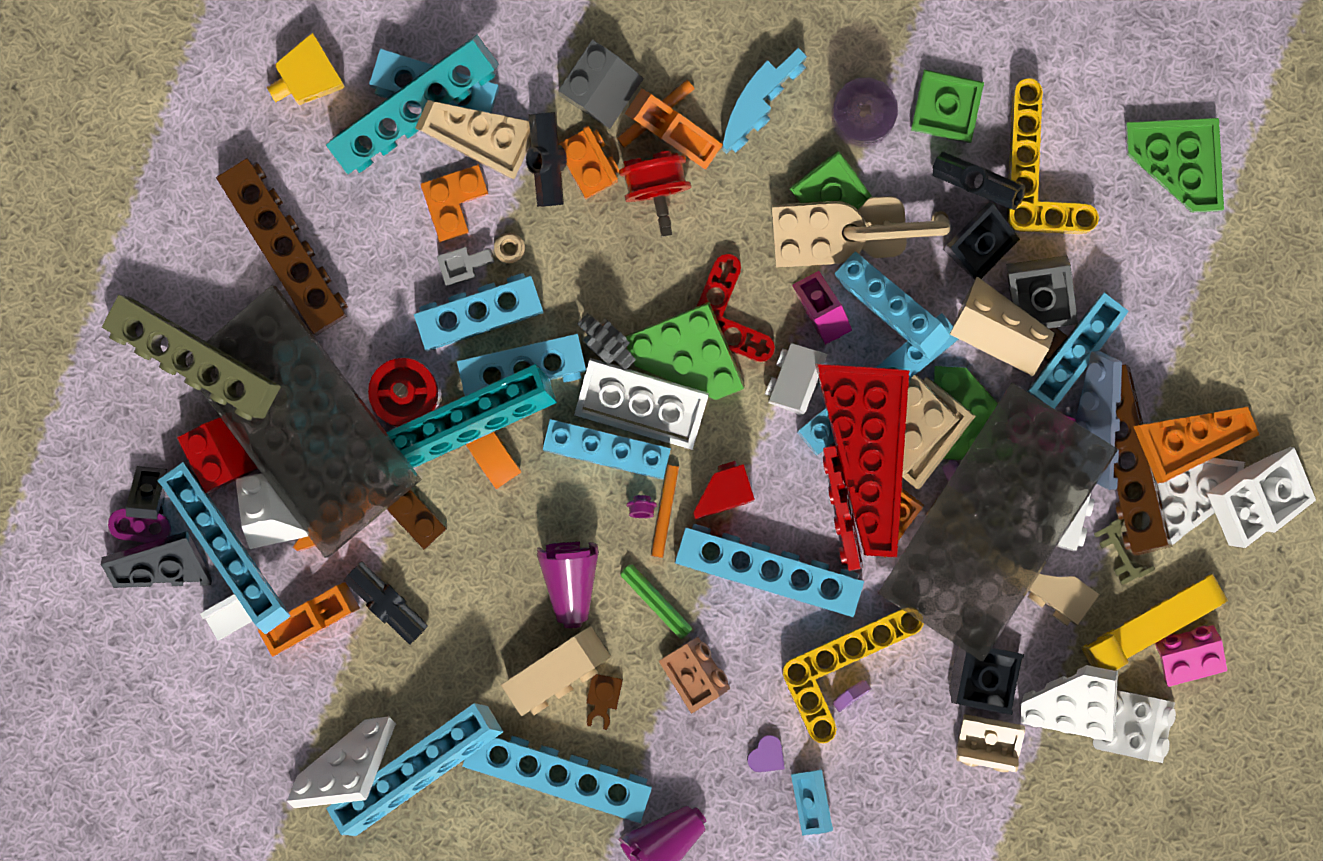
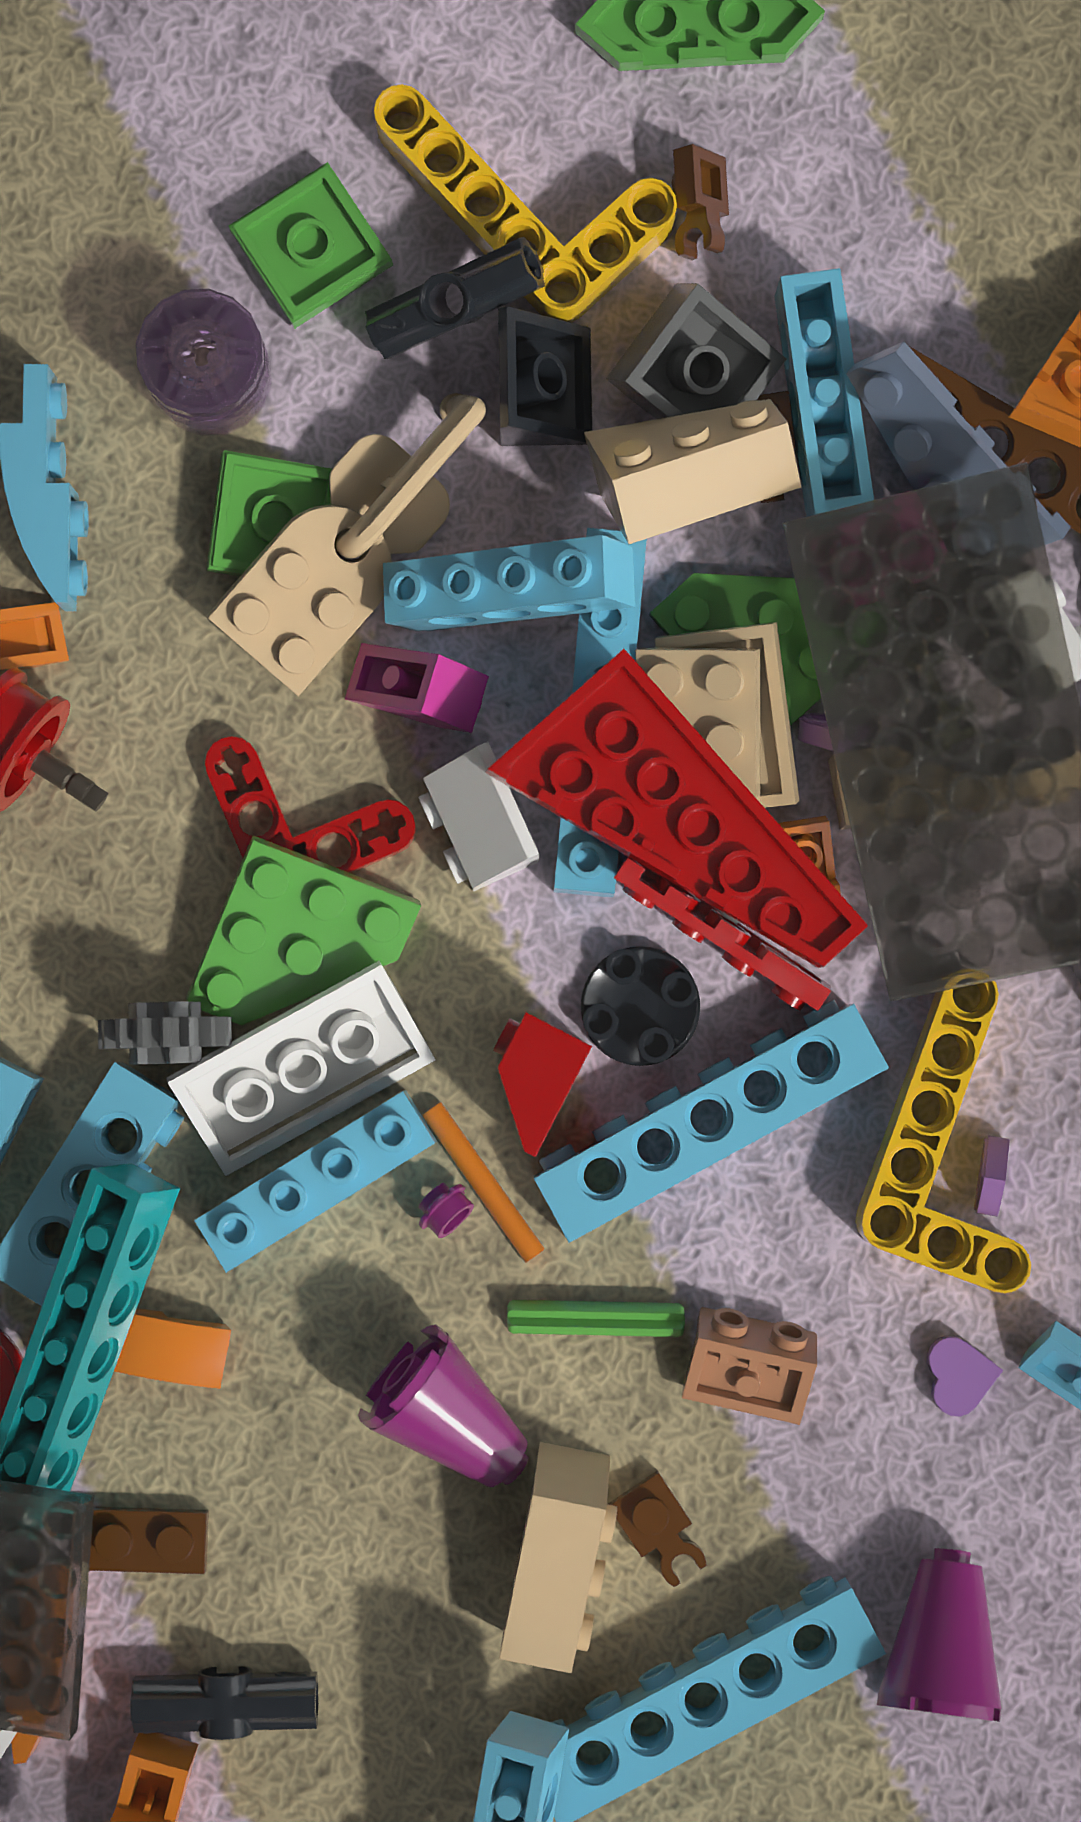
camera: 45 degrees left, 0 degrees up
(786, 505) = (640, 1006): none -> black dish
(1110, 232) = (703, 193): none -> reddish brown plate

